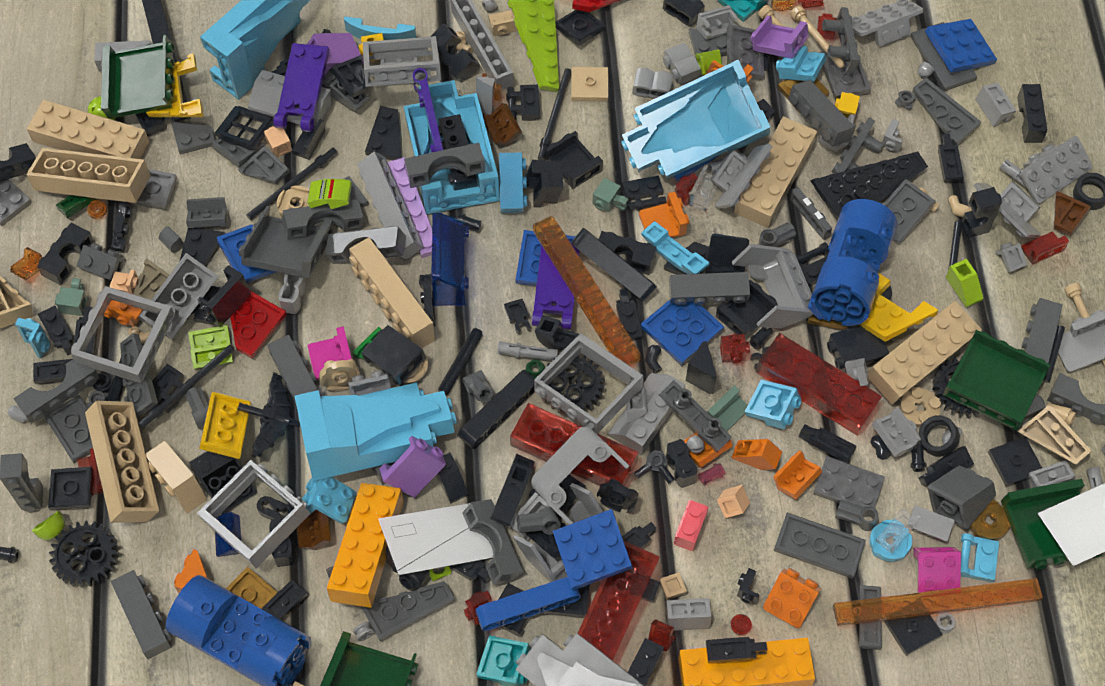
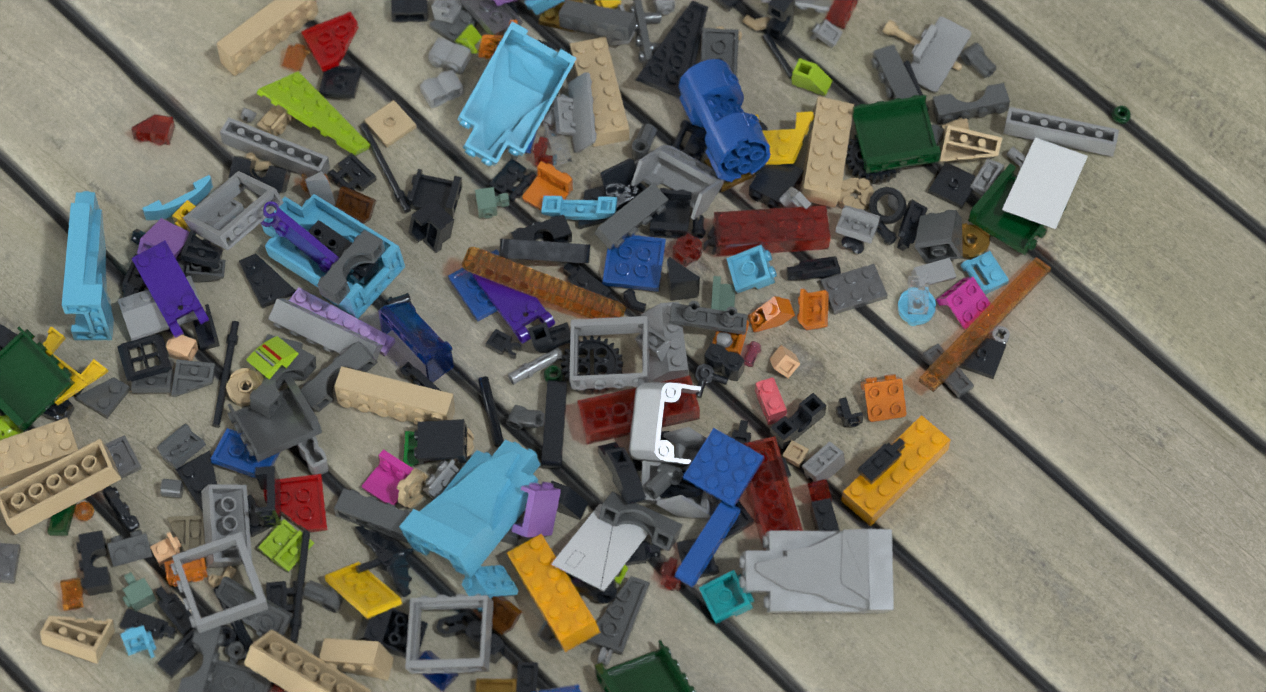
camera: 40 degrees left, 0 degrees up
(512, 182) = (414, 254): dark azure wedge -> none
(617, 496) = (703, 418): black plate -> none
(710, 561) = (807, 414): none -> black arch
(741, 624) = (865, 444): clear red plate -> none
(810, 213) = (653, 105): dark grey plate -> none
(819, 545) = (870, 347): dark grey tile -> none
(855, 513) = (878, 306): dark grey piece -> none

